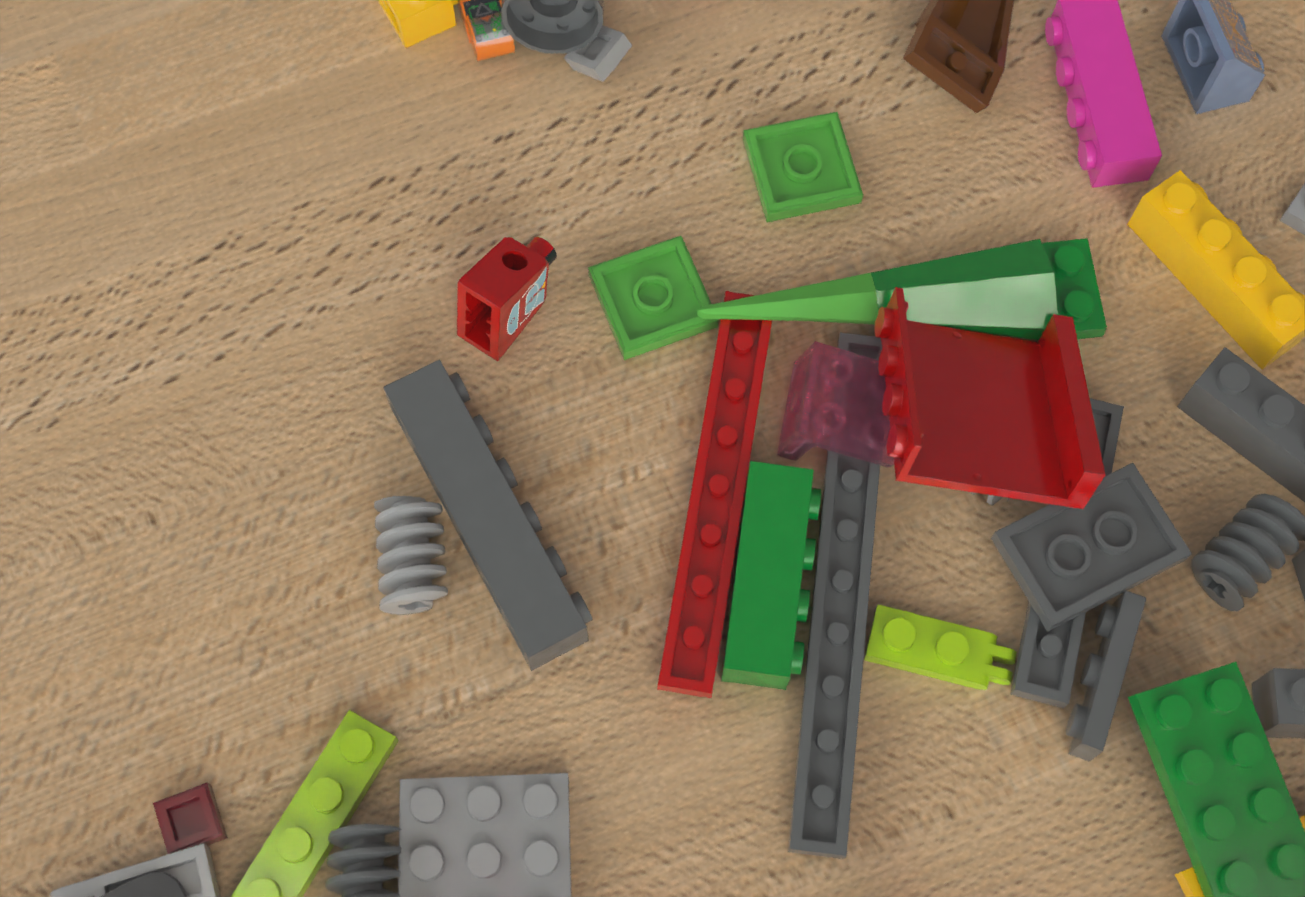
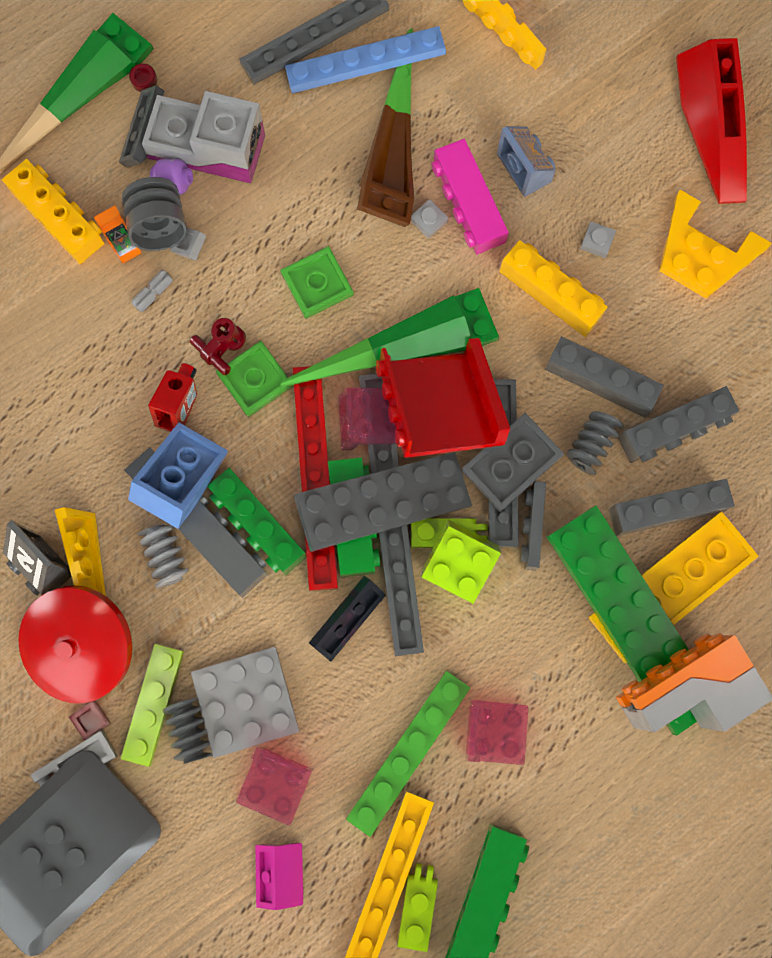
camera: 15 degrees left, 10 degrees up
(178, 501) = (34, 559): none -> dark grey slope
(206, 670) = (75, 644): none -> red dish
(268, 521) = (81, 547): none -> yellow wing
(472, 415) = (176, 475): none -> medium blue slope
(524, 109) = (156, 286): none -> light grey piece
(595, 538) = (257, 521): none -> green brick
(609, 222) = (220, 343): none -> dark red piece
(715, 756) = (347, 618): none -> black plate
(832, 555) = (382, 501): none -> dark grey plate
(955, 702) = (461, 561): none -> lime brick
(1022, 109) = (429, 219): none -> light grey plate

